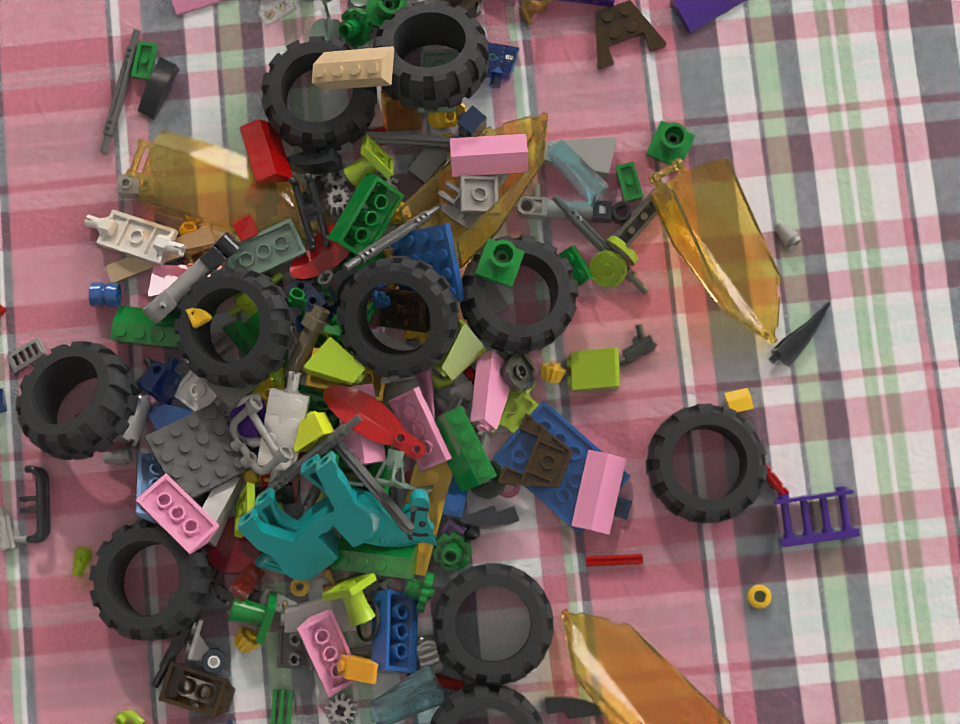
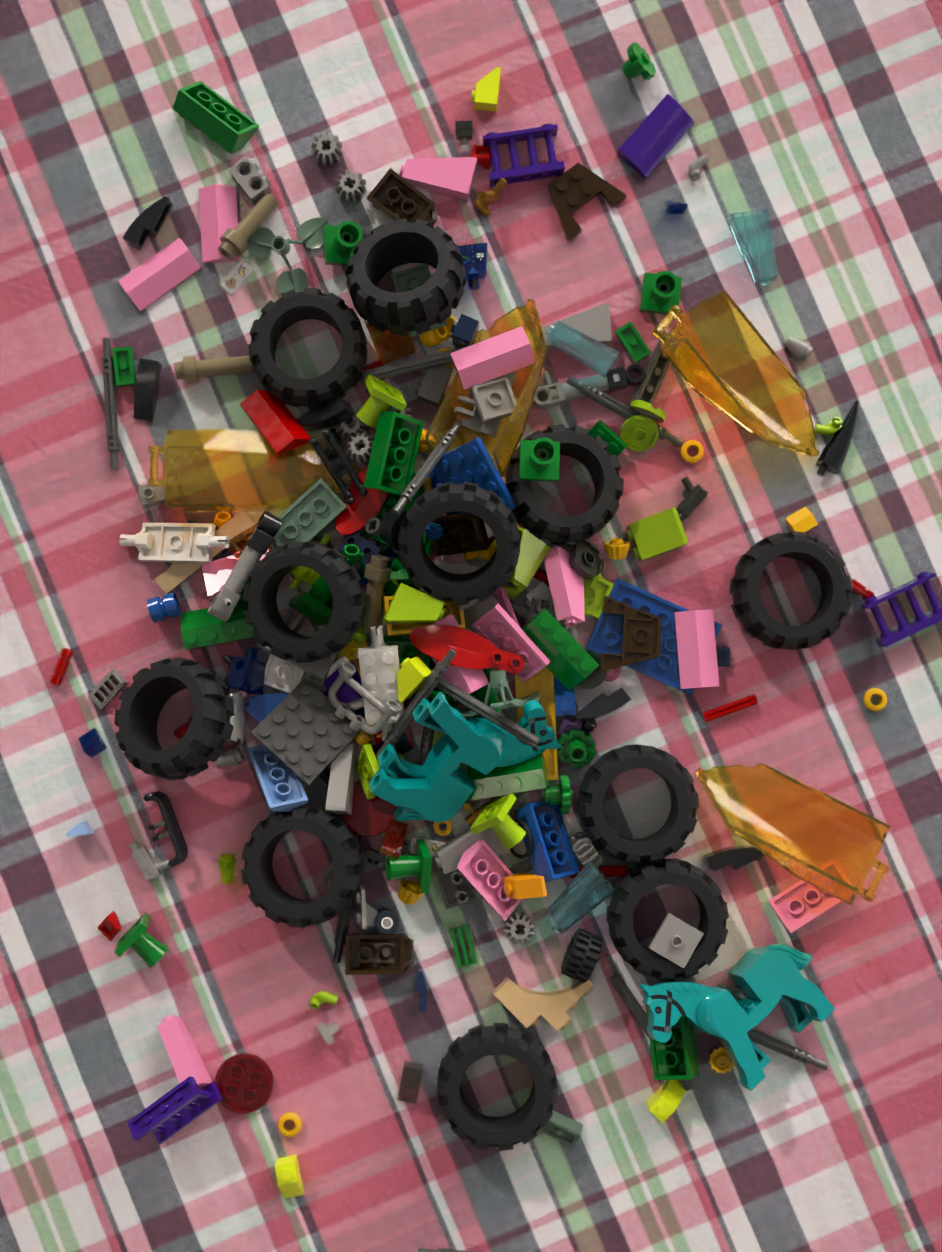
camera: 25 degrees left, 5 degrees up
(178, 514) = (309, 796): bright pink slope -> none
(199, 317) = (268, 602): yellow tile -> none
(206, 82) = (194, 369): none -> dark tan piece
(245, 227) = (280, 501): red slope -> none
(354, 68) = (338, 312): tan slope -> none
(355, 27) = (321, 270): green plant -> none
(654, 310) = (692, 443): none -> yellow piece
(709, 68) = (675, 207): none -> clear blue slope
(740, 36) = (694, 167): none -> light grey arm
(775, 122) = (755, 243): none -> clear light blue slope
(794, 321) = (829, 429): none -> lime arm

